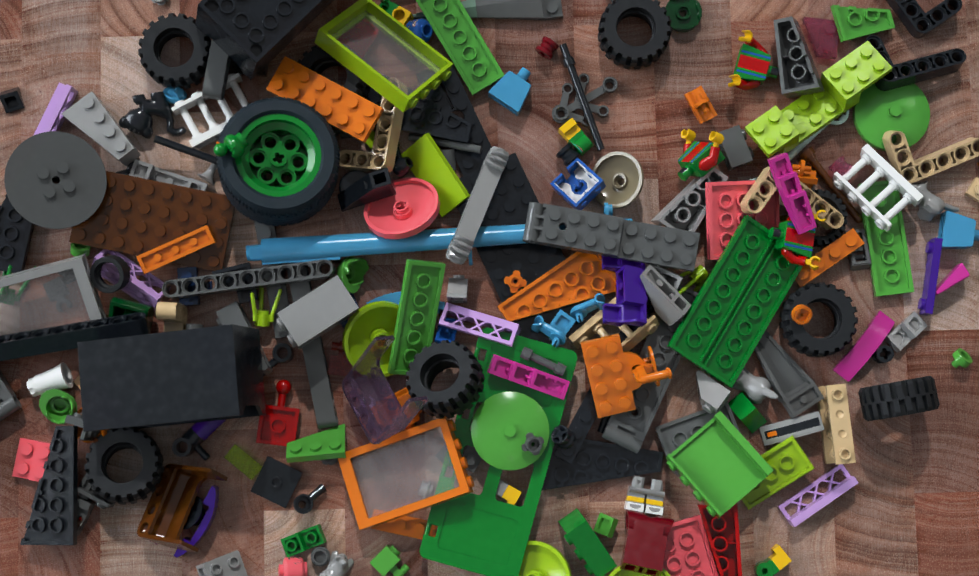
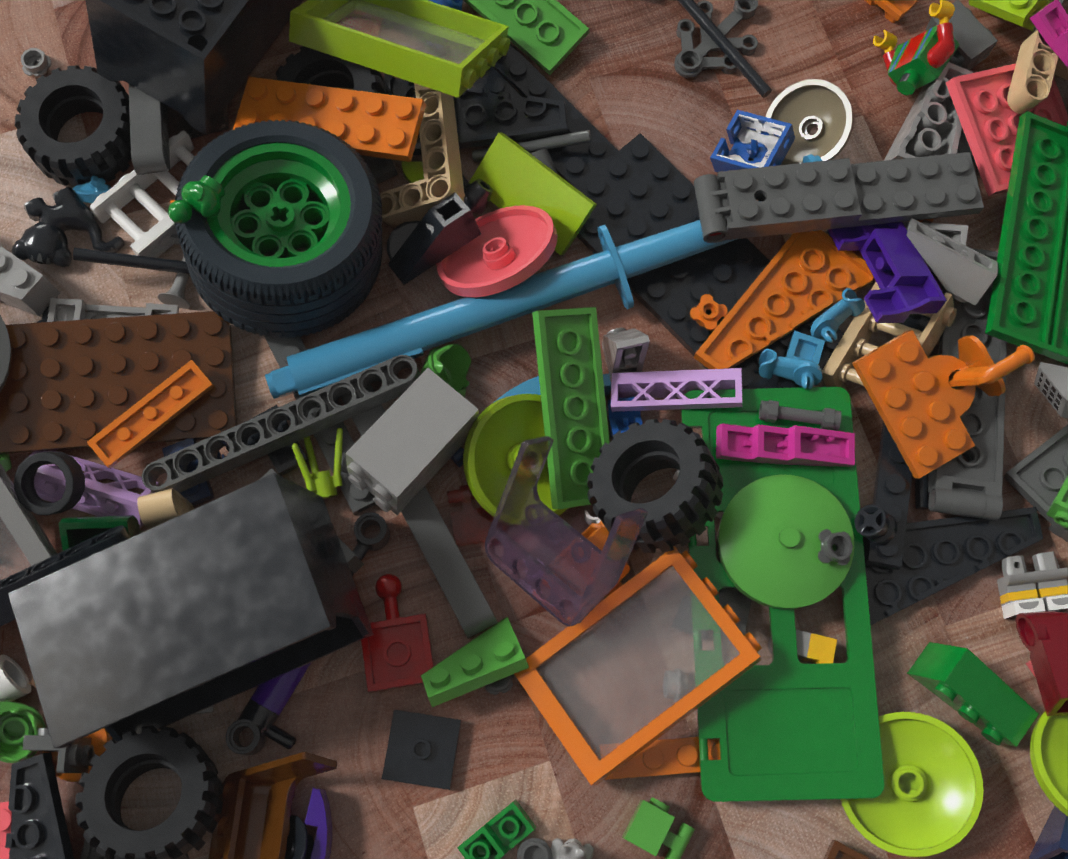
camera: 15 degrees left, 10 degrees down
(243, 462) = (355, 733): clear neon green piece -> none
(308, 500) = (484, 763): black bar -> none
(477, 205) = (614, 211): light grey arm -> none
(512, 90) = (605, 50): dark azure torso -> none
(567, 154) = (719, 113): black wheel -> none
(575, 136) = (722, 87): leg -> none
(605, 525) = (992, 651): bright green plate -> none
(698, 277) = (980, 230): lime plant -> none

